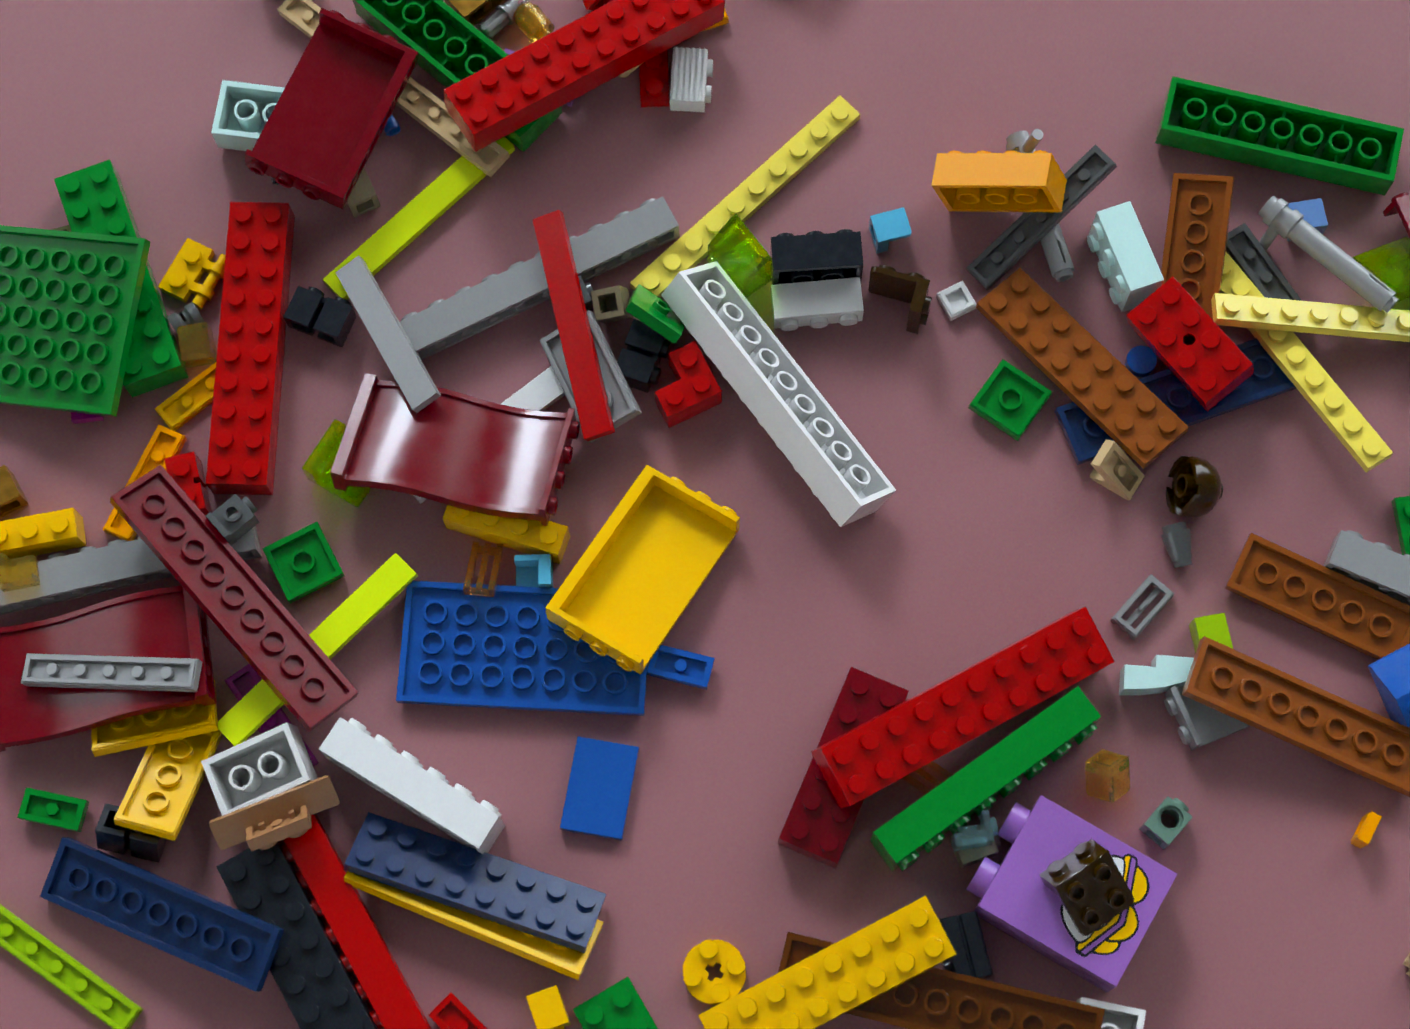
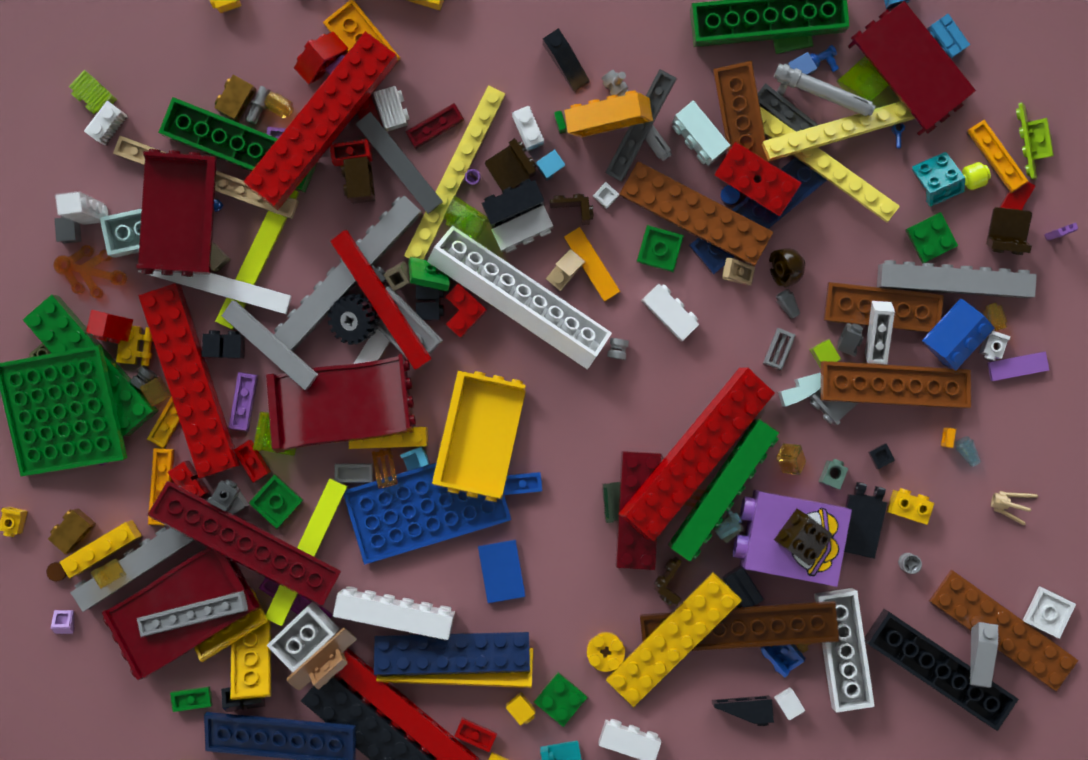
camera: 20 degrees left, 15 degrees up
(170, 87) = (67, 231): none -> dark grey brick
(171, 228) = (109, 326): none -> red brick
(173, 150) = (86, 270): none -> clear orange plant
(201, 53) = (80, 208): none -> white brick
(292, 491) = (251, 461): none -> red plate
(315, 406) = (243, 401): none -> medium lavender tile
(358, 238) = (233, 289): none -> white tile
(435, 562) = (354, 473): none -> light grey tile
(535, 348) = (362, 321): none -> black wheel
(606, 155) = (359, 180): none -> dark brown brick
(610, 116) = (350, 150): none -> red brick
(673, 153) = (399, 163): none -> dark grey tile
(742, 125) = (434, 125): none -> dark red tile
(766, 213) = (469, 179): none -> medium lavender hinge
(806, 740) = (611, 501): none -> clear green panel
(834, 207) = (511, 166): none -> dark brown bracket
(843, 910) = (662, 581): none -> dark brown bracket
(859, 381) = (565, 269): none -> tan slope
(876, 169) = (528, 128): none -> white brick
(897, 519) = (618, 344): none -> light grey wheel
(901, 389) = (593, 266): none -> light orange tile
(925, 177) = (560, 122): none -> green tile
(963, 96) = (565, 59): none -> black slope
(994, 494) = (670, 311): none -> white brick
(1190, 915) = (865, 521): none -> black tile
(1250, 1002) = (911, 566): none -> light grey wheel
(1251, 821) = (881, 456): none -> black plate
(1258, 625) = (850, 339): none -> dark grey brick
(1273, 915) = (909, 506): none -> yellow brick
(1302, 187) = (792, 44): none -> bright green tile
(1305, 627) = (879, 332): none -> white brick
(1351, 218) = (828, 55): none -> blue piece
(1391, 862) = (968, 450): none -> clear light blue cone

